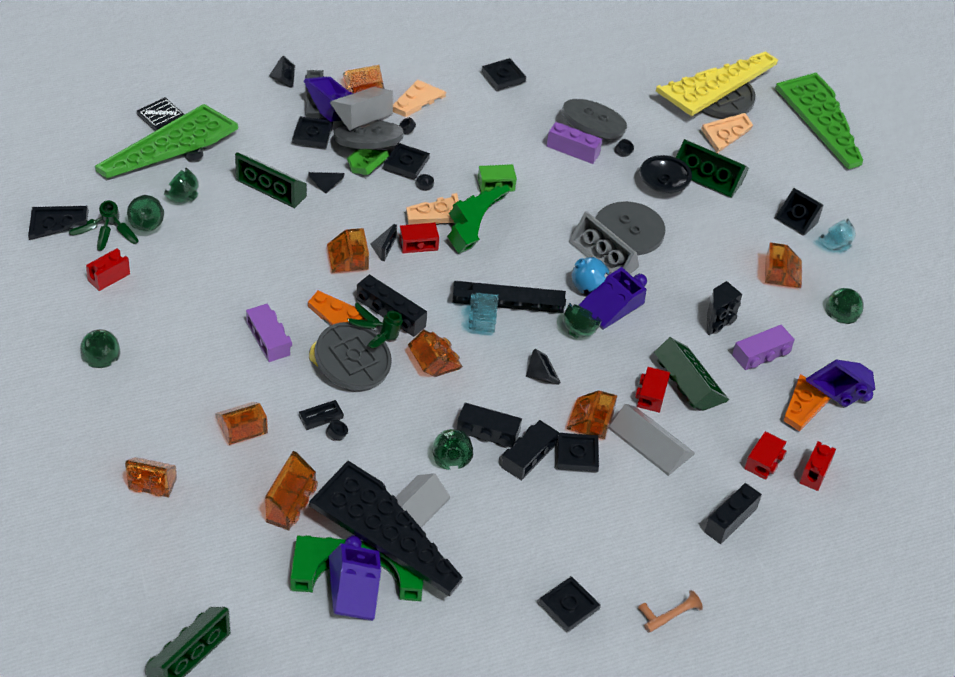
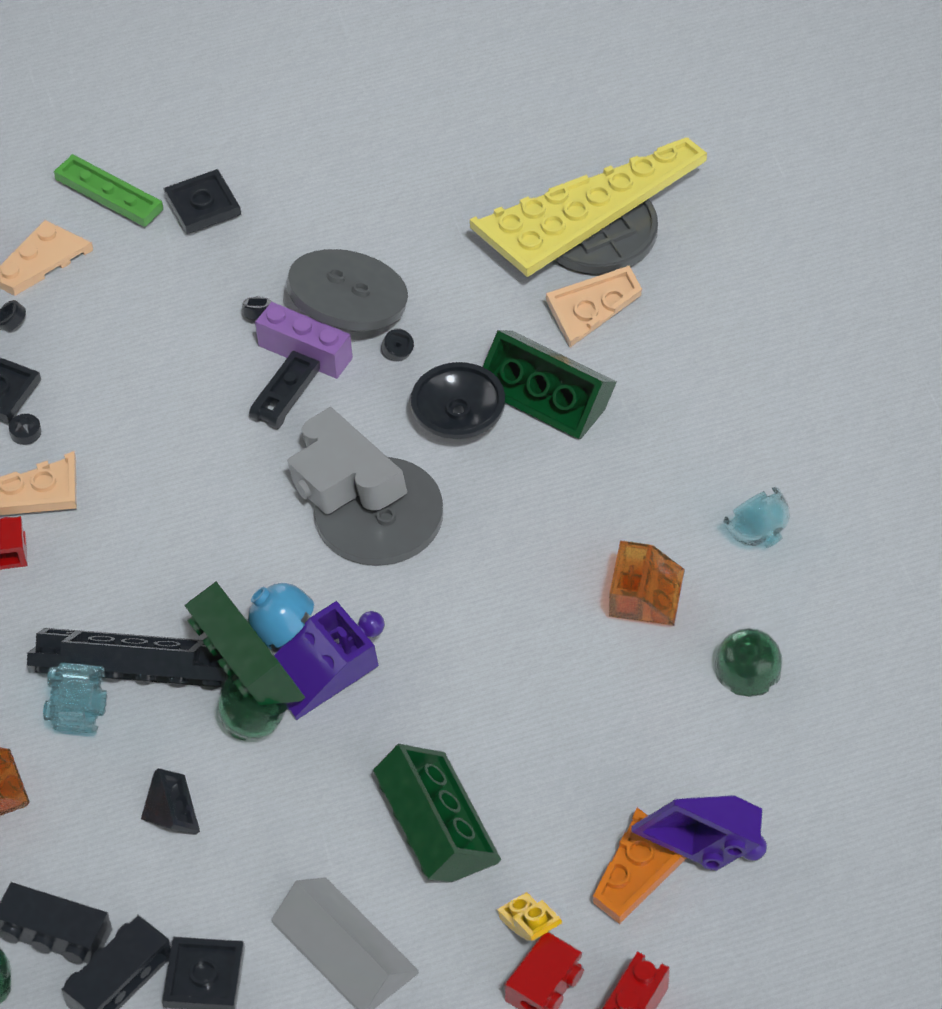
camera: 10 degrees right, 5 degrees up
(450, 66) = (108, 190): none -> bright green plate
(468, 216) = (84, 495): green arch -> none
(496, 175) = (152, 418): bright green brick -> none
(543, 127) = (254, 306): none -> black tile
(567, 167) = (284, 389): none -> black plate
(575, 286) = (241, 648): none -> dark green slope
(593, 413) = (242, 899): clear orange slope -> none
(599, 242) = (318, 557): light grey slope -> none
(610, 203) = (342, 466): none -> light grey brick
(653, 389) = (361, 844): red brick -> none
(723, 307) = (512, 677): black slope -> none
(753, 426) = (528, 917): none -> yellow slope
(763, 347) = (579, 753): medium lavender brick -> none
(800, 211) = (696, 470): black slope -> none
(819, 109) = (775, 251): bright green wing -> none

